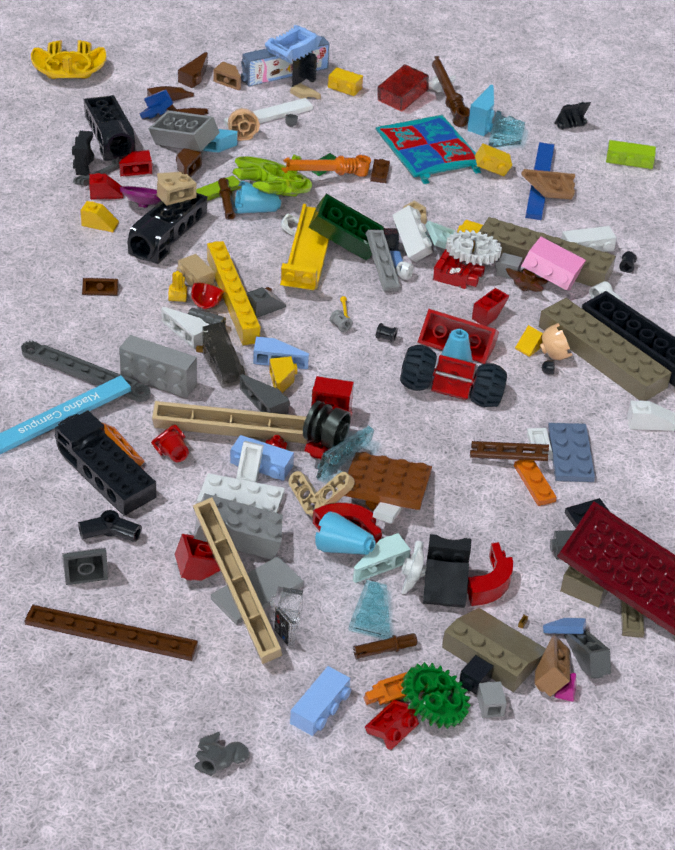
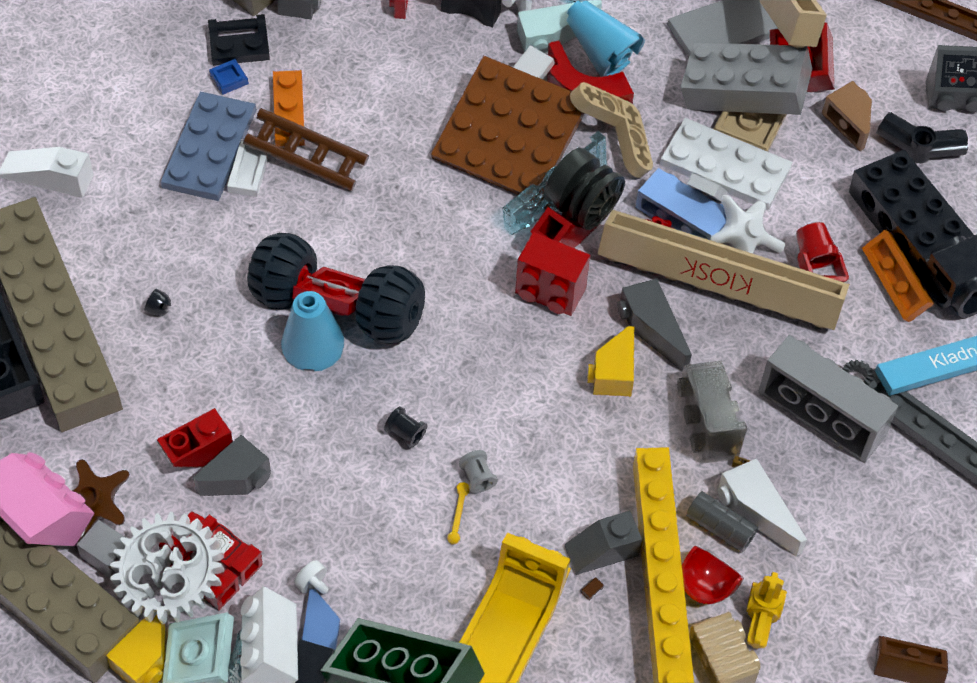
camera: 165 degrees left, 15 degrees up
(162, 535) = (850, 113): none -> medium nougat slope
(219, 446) = (745, 228): none -> white animal
(269, 348) = (616, 414): light blue slope -> none
(383, 260) = (352, 593): light grey tile -> none
(440, 325) = (281, 393): red slope -> none
(462, 302) = (234, 471): none -> dark grey slope
(529, 341) = (152, 364): yellow slope -> none
(555, 343) = (127, 328): light nougat cylinder -> none
(583, 493) = (228, 76): none -> blue tile

